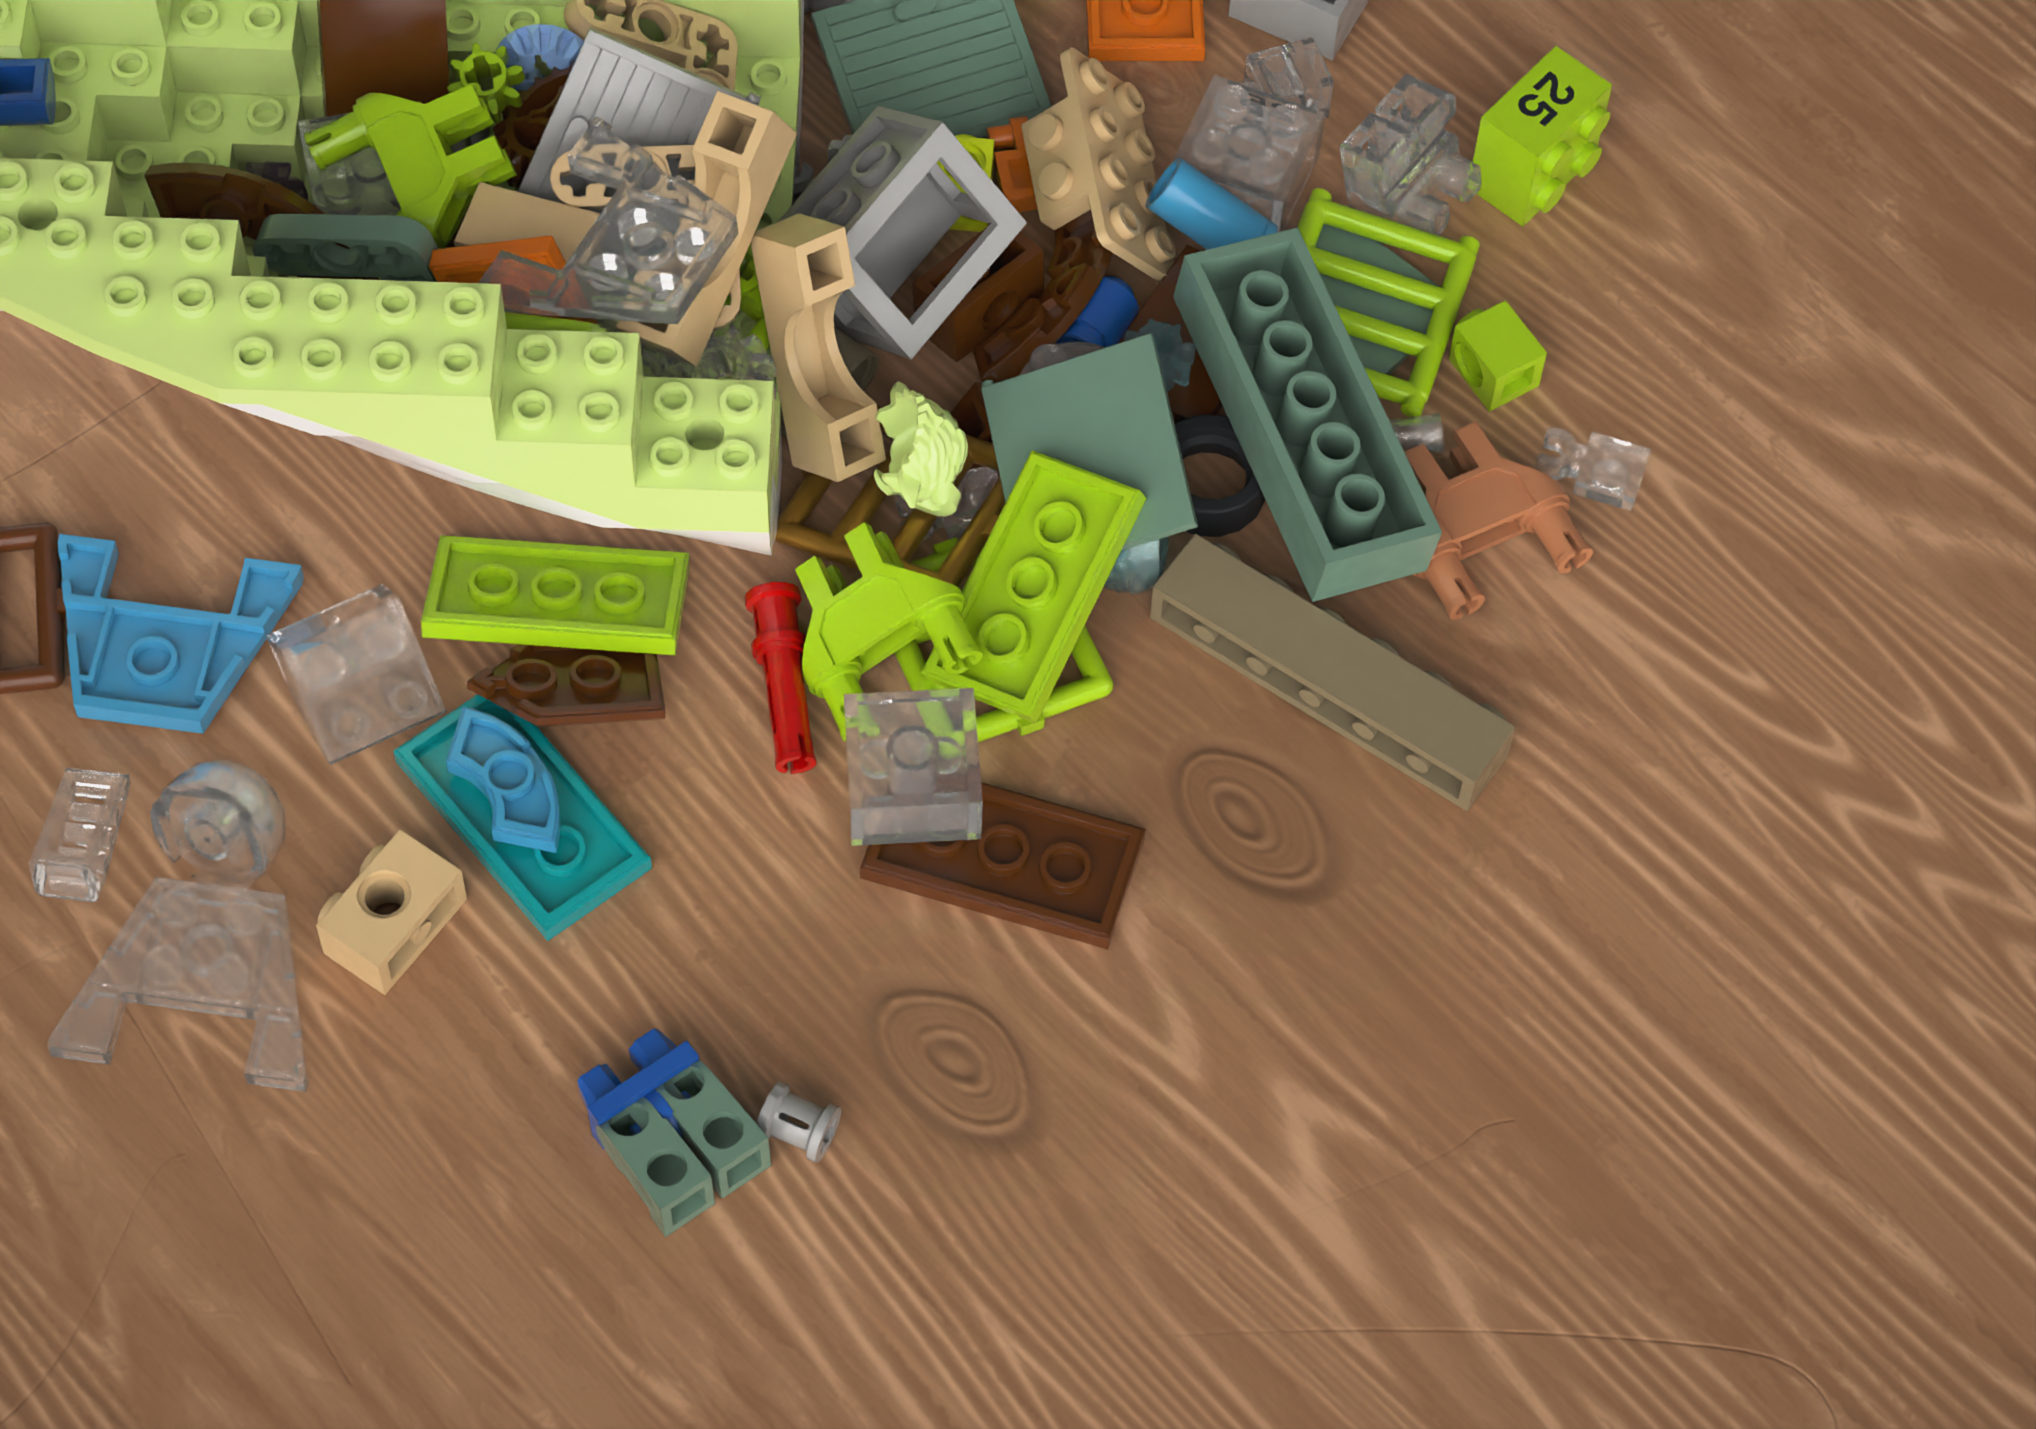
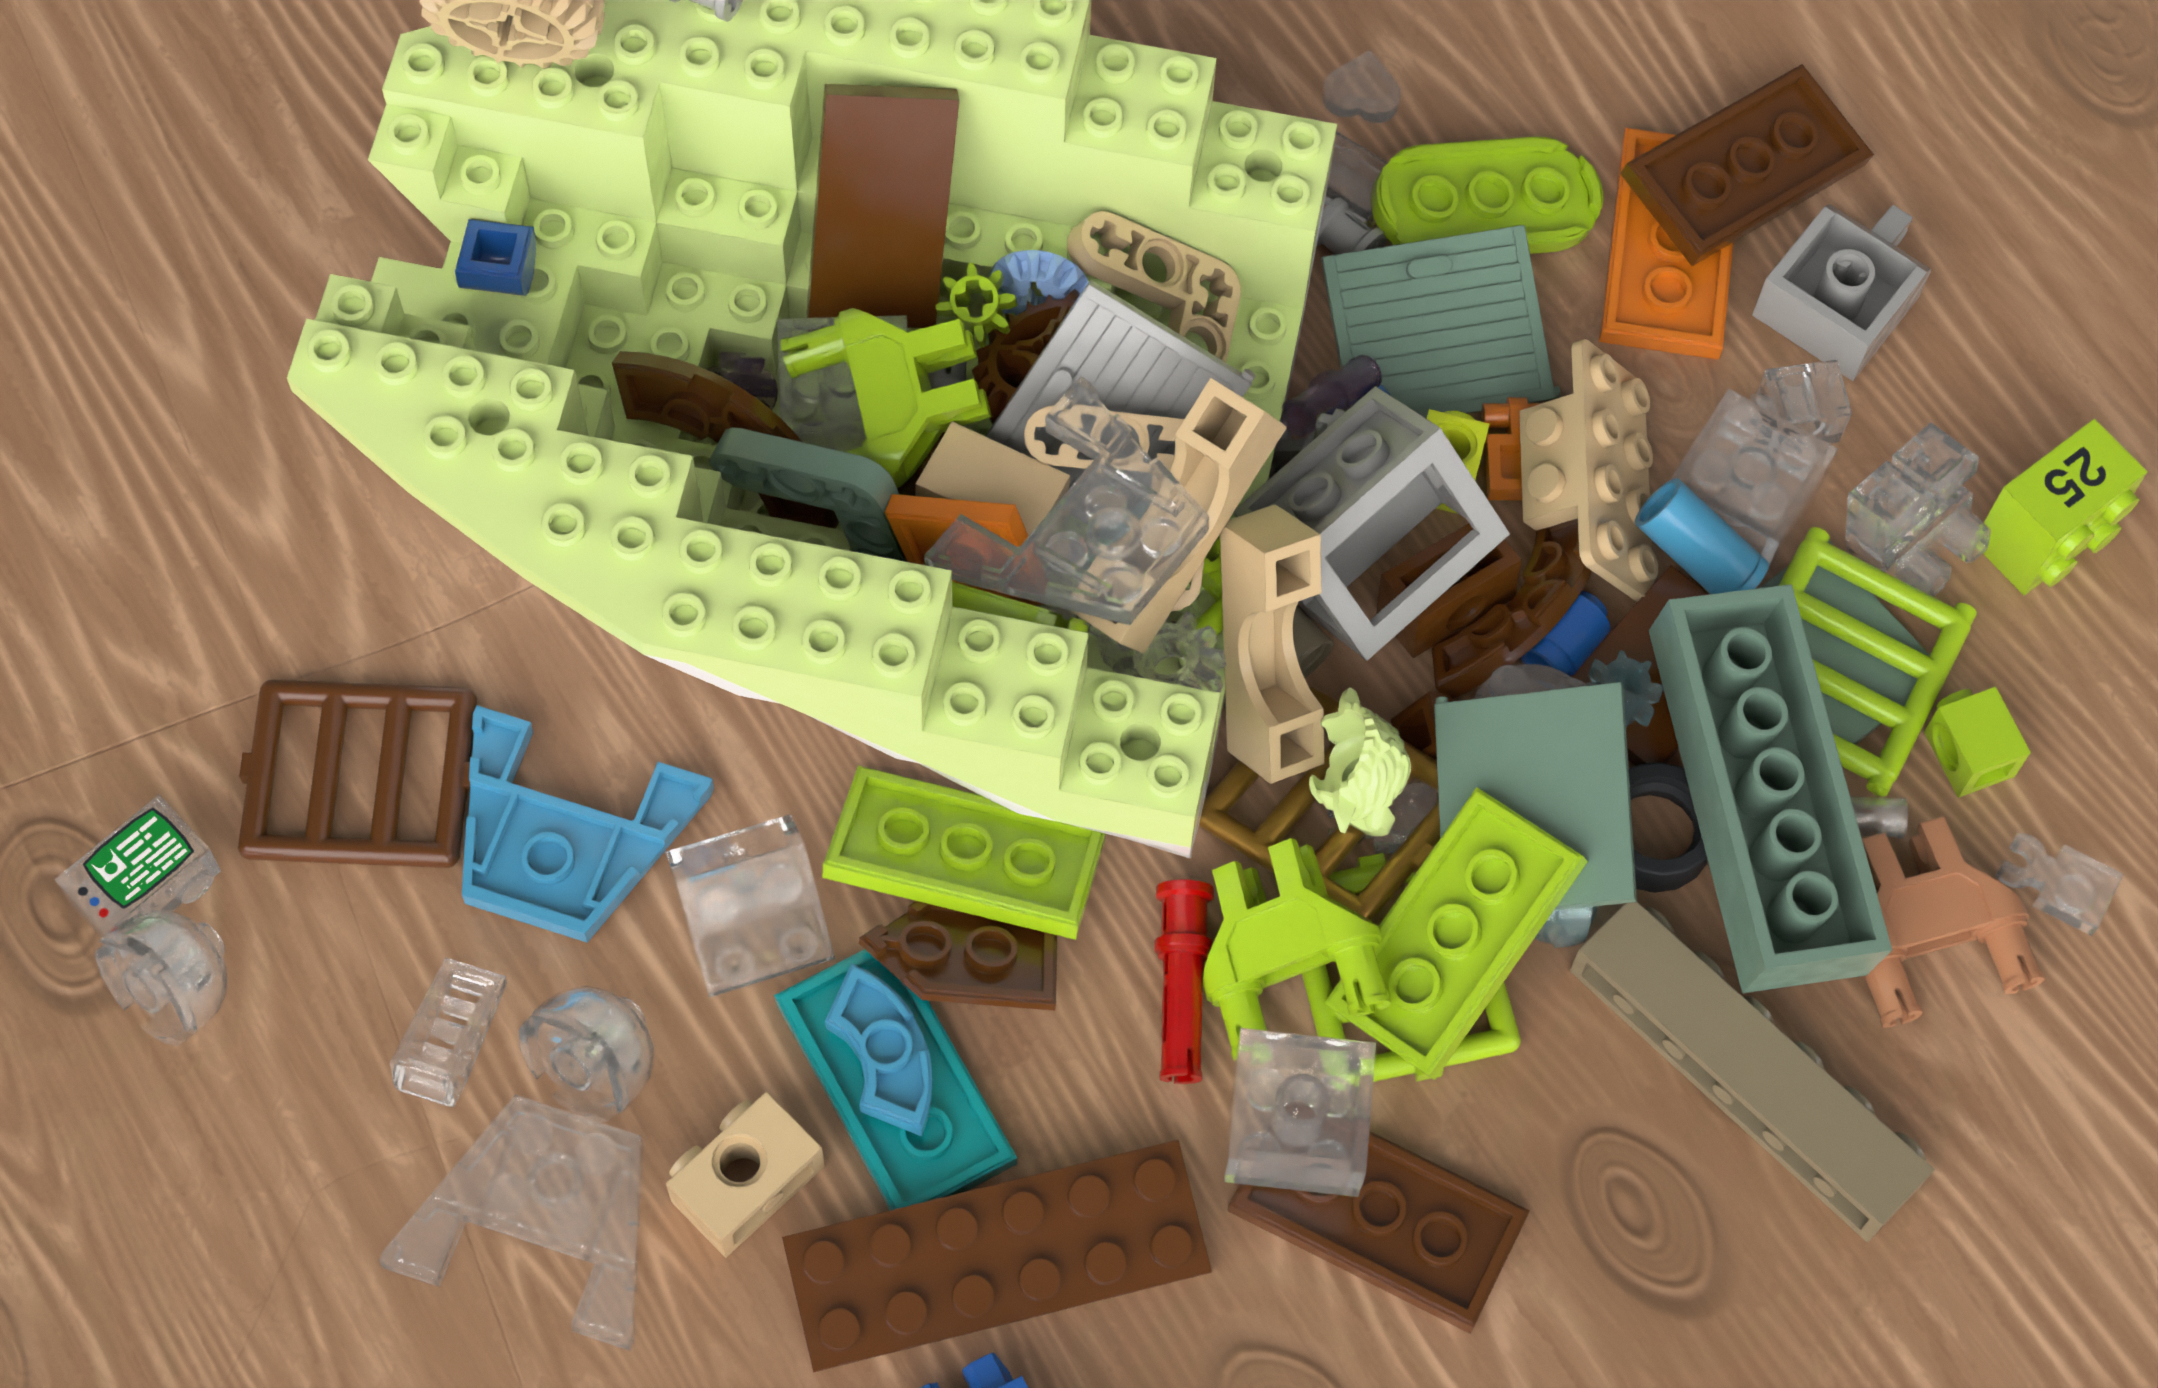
camera: 10 degrees right, 5 degrees up
(644, 947) = (996, 1255): none -> reddish brown plate
(812, 149) = (1330, 391): none -> pin

